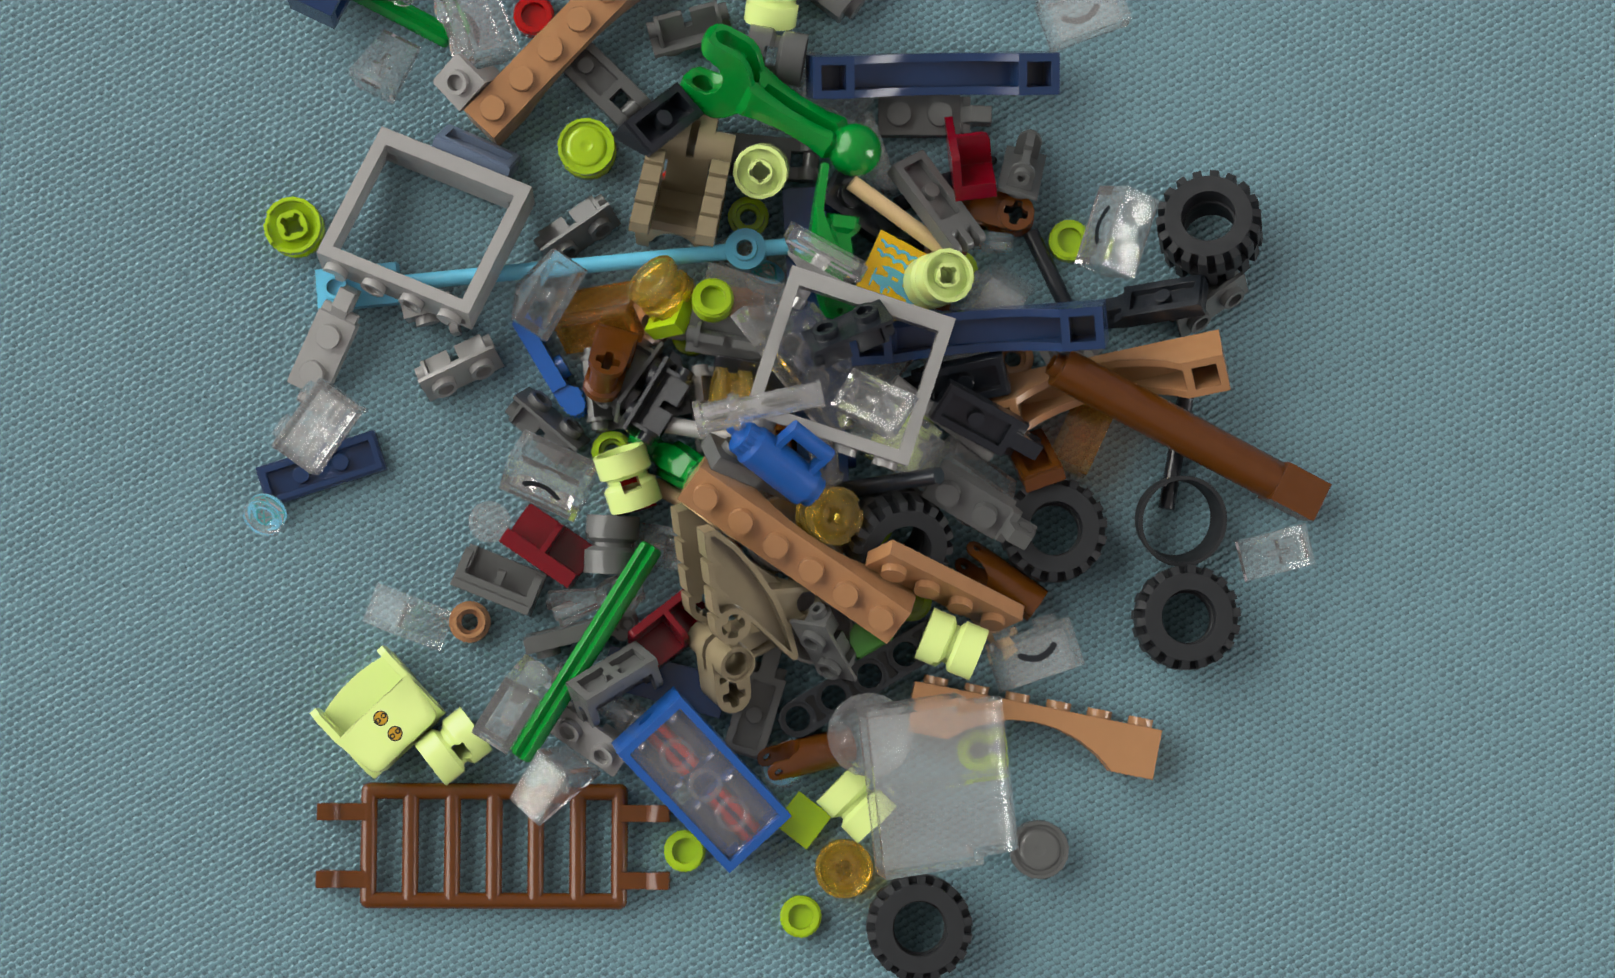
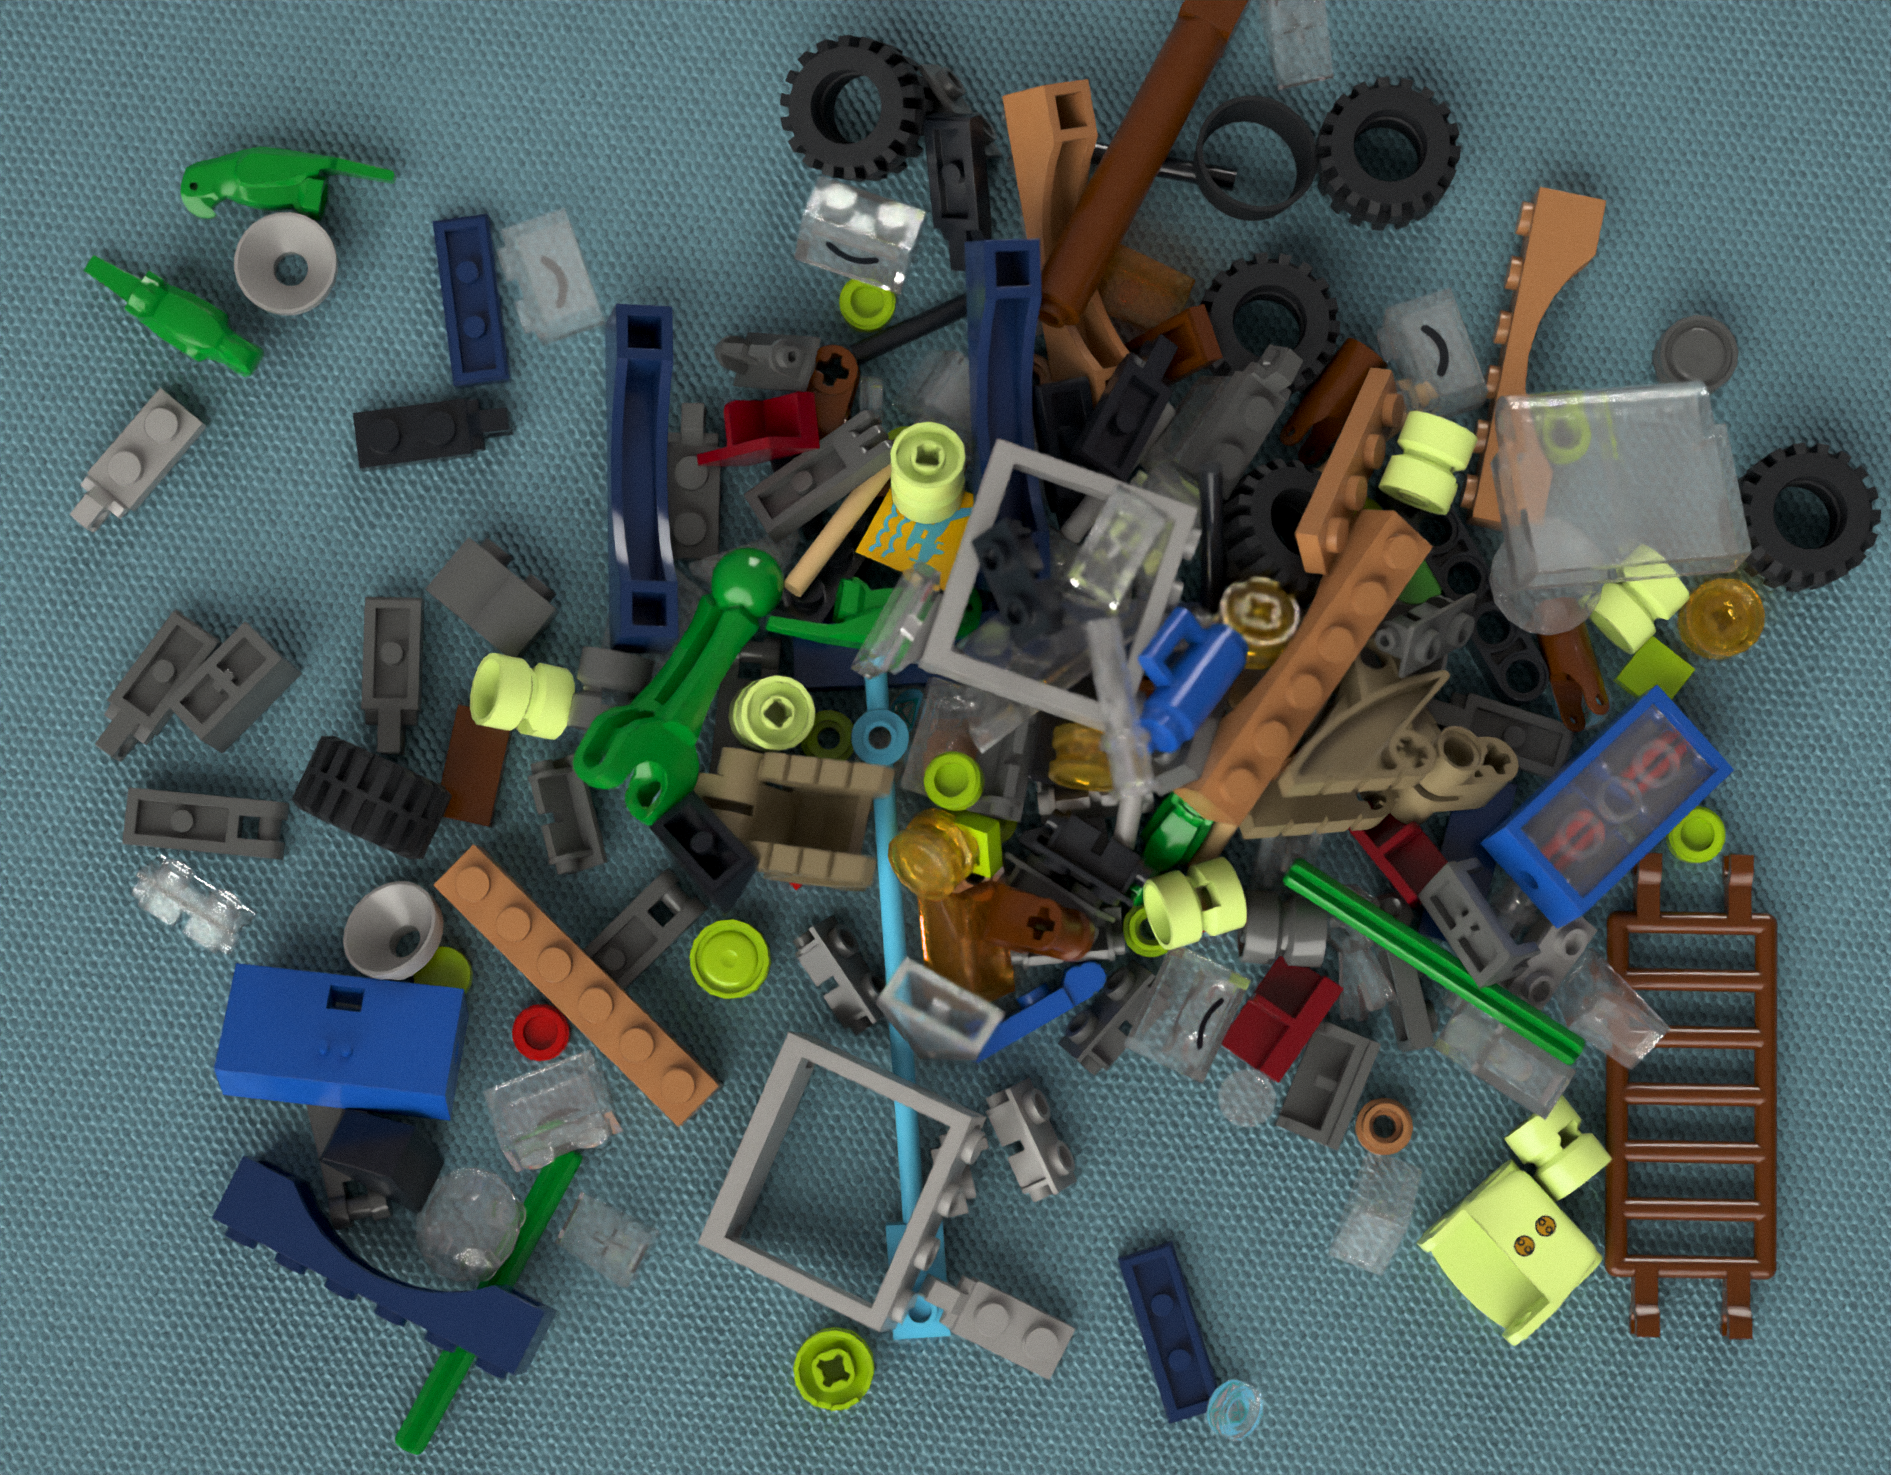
camera: 85 degrees left, 0 degrees up
(317, 425) = (1116, 1334): clear brick -> none
(463, 81) = (638, 1127): light grey bracket -> none
(477, 150) = (731, 1112): sand blue tile -> none
(800, 916) = (1783, 679): lime tile -> none

